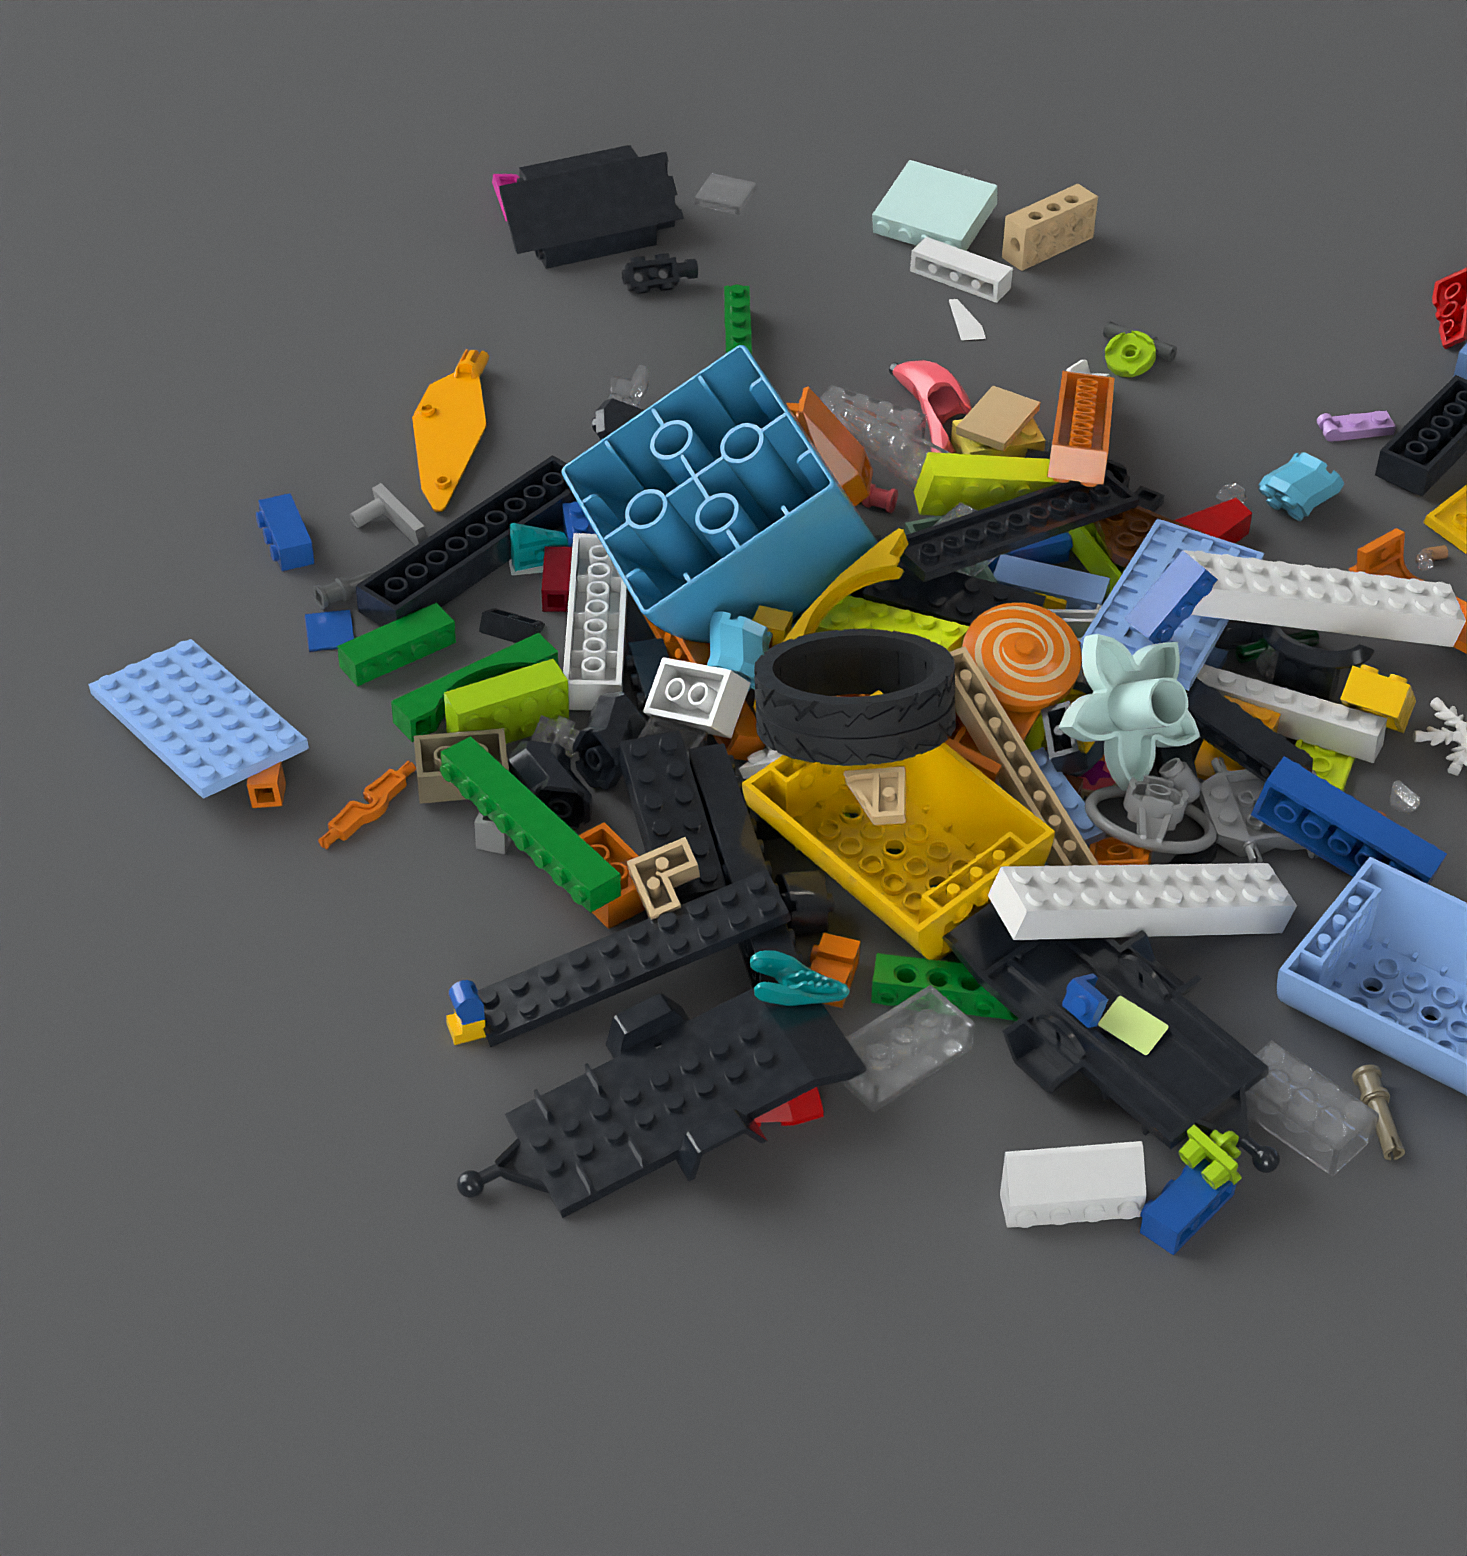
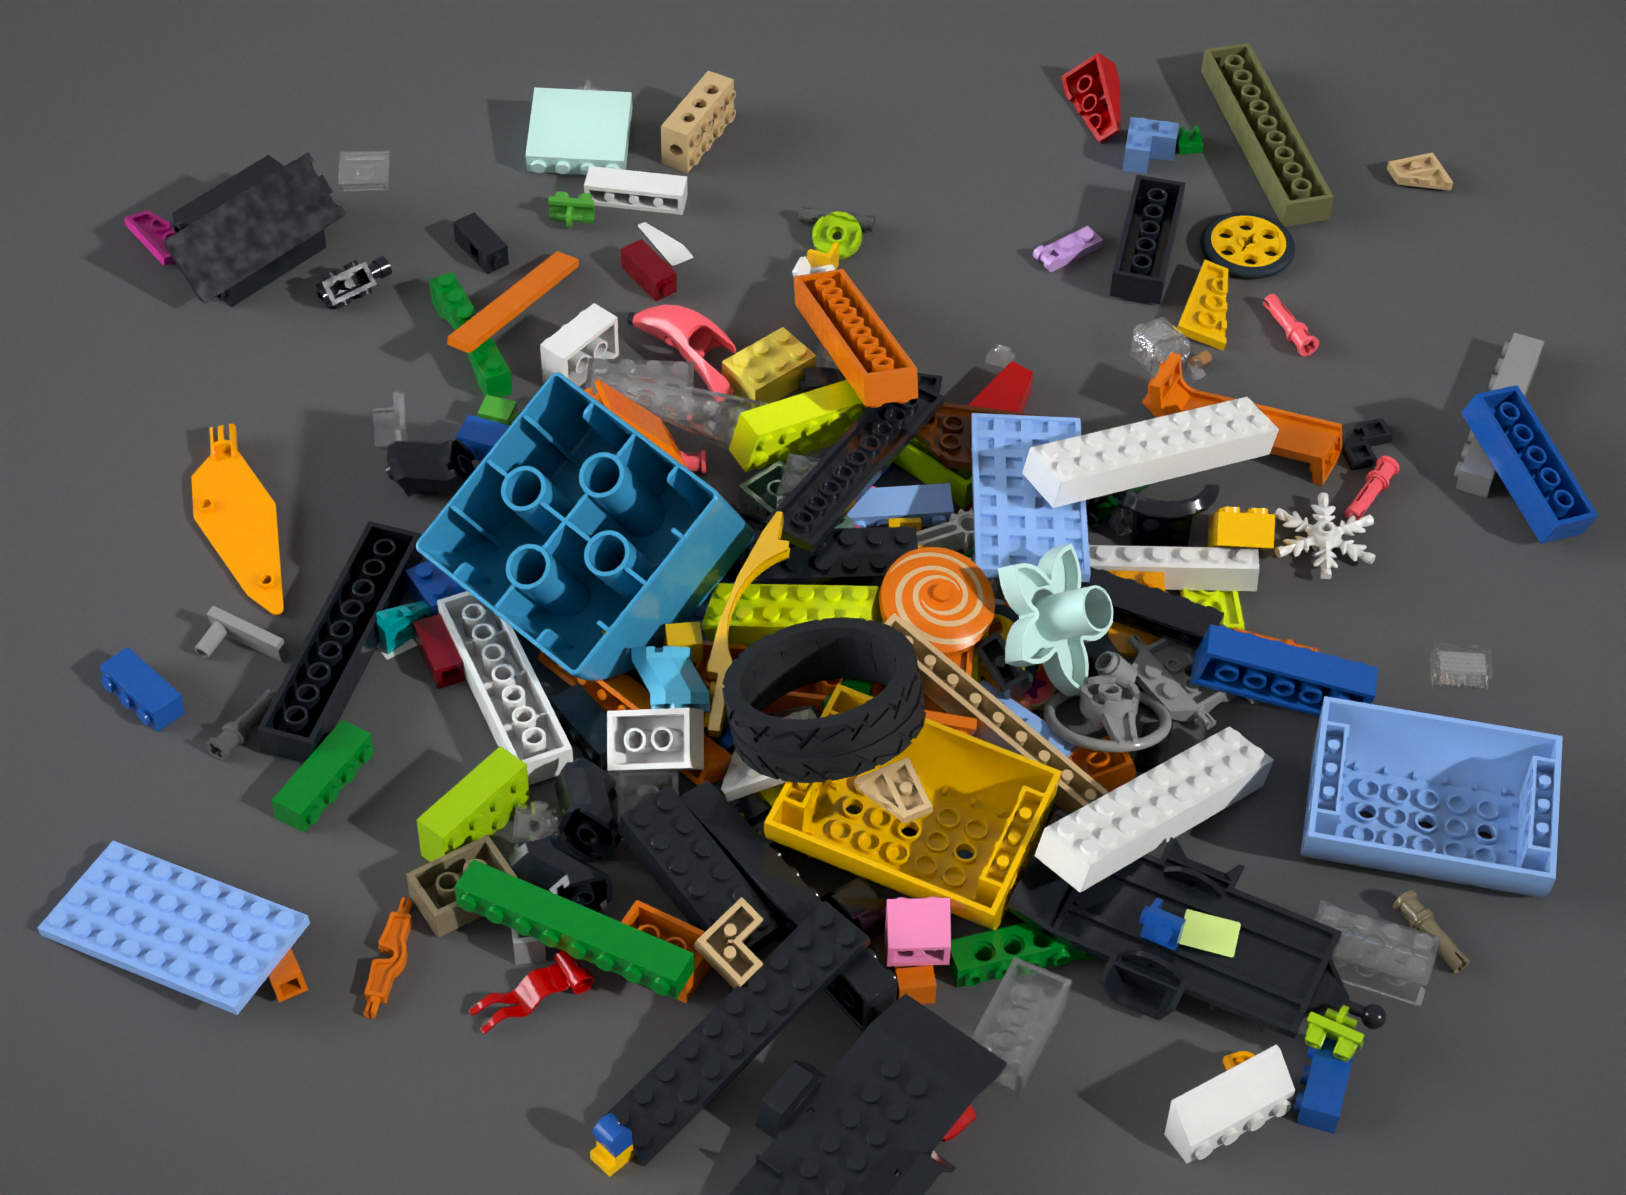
camera: 25 degrees left, 5 degrees up
(328, 629) = (242, 781): blue window -> none
(424, 708) = (456, 753): green arch -> none
(503, 868) = (536, 986): none -> red flag
(509, 625) = (418, 716): black slope -> none
(788, 323) = (512, 302): none -> orange tile
(793, 274) = (481, 243): none -> black brick
(796, 982) = (910, 1002): teal animal -> none
(836, 365) = (585, 337): none -> white brick
(845, 929) = (918, 931): none -> bright pink slope
(892, 269) = (571, 209): none -> bright green hips
(934, 334) = (648, 270): none -> dark red brick
(997, 418) = (765, 347): tan tile -> none
(1113, 367) = (819, 258): none -> yellow panel
(1171, 599) = (1046, 502): brick -> none
(1300, 485) = (1059, 330): medium azure brick -> none
(1394, 513) = (1155, 342): none -> clear brick
(1403, 799) = (1298, 618): clear plate -> none

